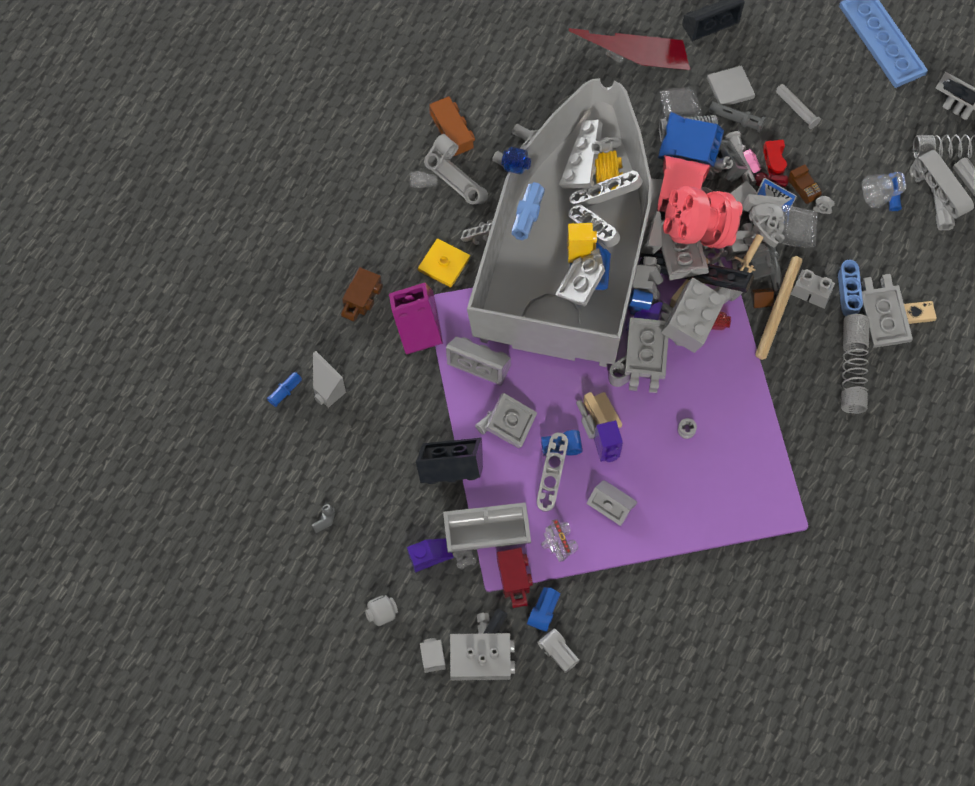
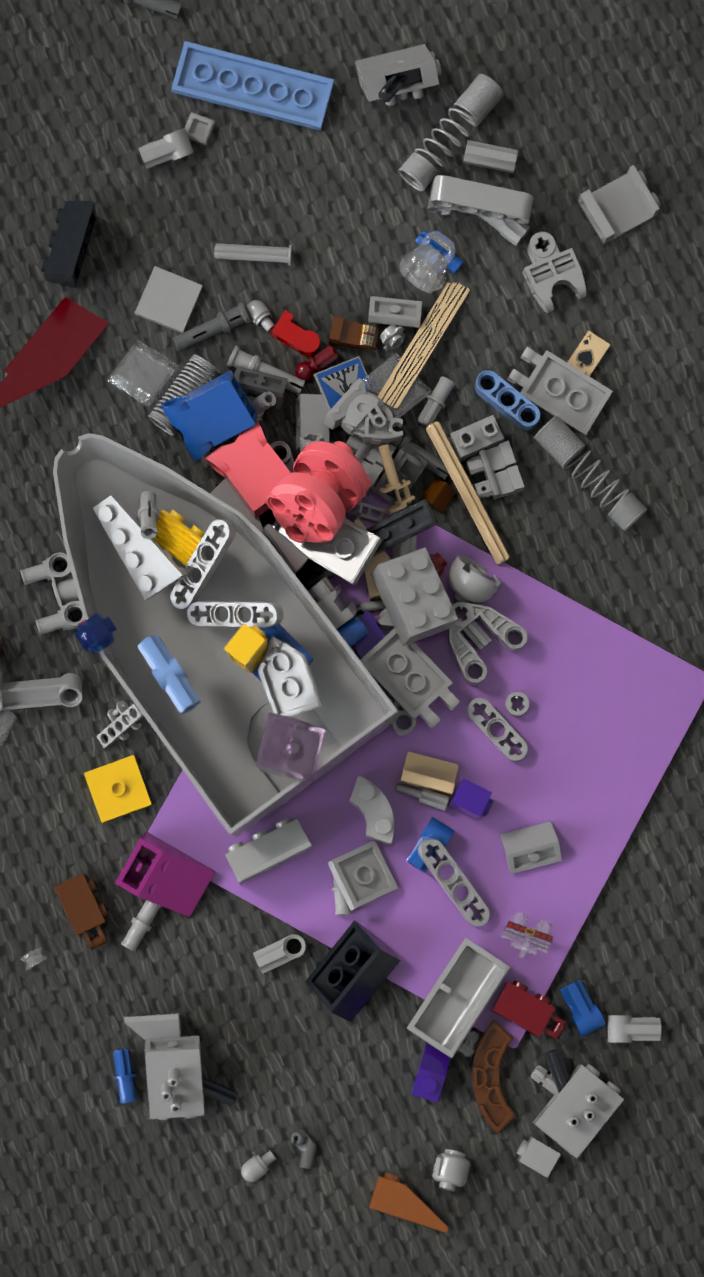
camera: 60 degrees left, 15 degrees up
(291, 500) = (257, 1167): none -> light grey cylinder
(305, 413) = (177, 1079): none -> light grey piece
(311, 291) = (34, 958): none -> clear bush
(338, 596) = (398, 1200): none -> dark orange slope
(378, 331) = (140, 925): none -> light grey pin
(426, 414) = (277, 953): none -> light grey piece
(454, 588) = (486, 1076): none -> reddish brown tile
(544, 297) = (290, 747): none -> clear purple slope
(554, 398) = (375, 809): none -> light grey brick
(666, 443) = (477, 720): none -> light grey beam
(715, 363) = (494, 622): none -> light grey connector
(731, 345) = (471, 581): none -> light grey cylinder
(752, 160) = (279, 363): bright pink tile -> none
(768, 132) = (260, 315): none -> light grey cylinder
(808, 314) = (499, 471): none -> light grey hips
(809, 24) = (171, 146): none -> light grey piece
(814, 254) = (435, 401): none -> light grey axle
(833, 32) = (199, 128): none -> light grey tile
(836, 221) = (423, 344): none -> tan sticker
(839, 195) = (395, 311): none -> light grey plate
(944, 254) = (551, 269): none -> light grey piece

